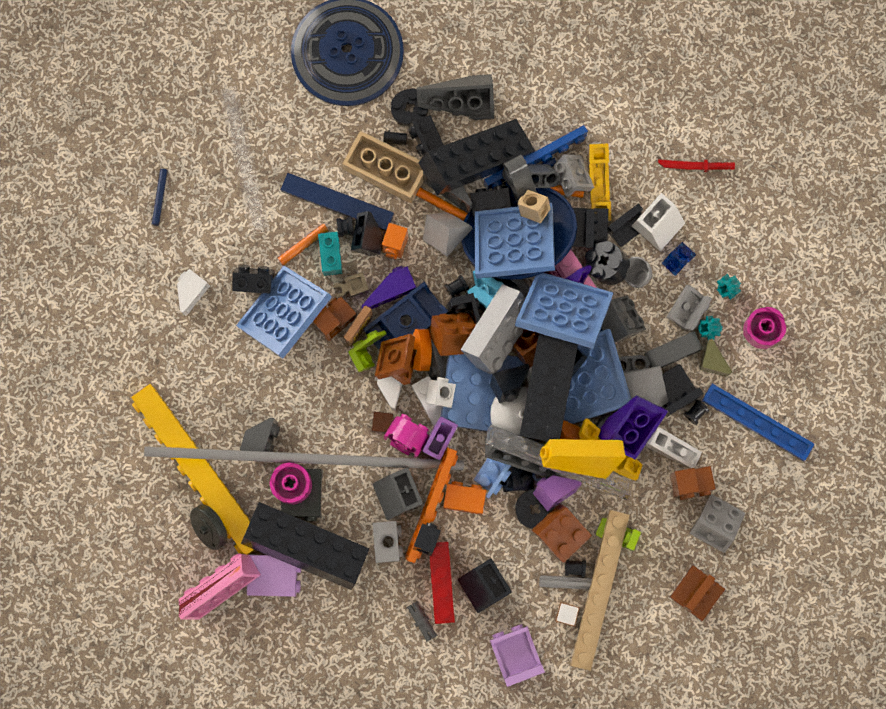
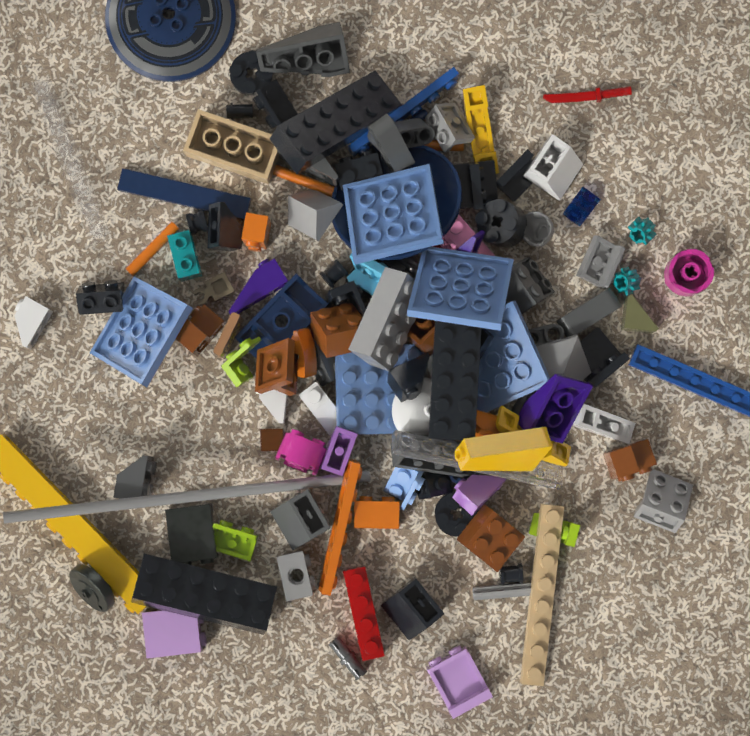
camera: 10 degrees left, 5 degrees up
(218, 587) = (112, 655): bright pink slope -> none
(280, 479) = (164, 525): dark pink brick -> none
(338, 505) = (235, 541): none -> lime bracket
(427, 539) = (340, 568): black brick -> none
(433, 392) = (340, 403): white brick -> none
(534, 206) = (409, 171): tan brick -> none
(567, 614) = (509, 626): white tile -> none
(696, 412) = (625, 371): black bush -> none
(697, 592) = (650, 582): dark orange bracket -> none

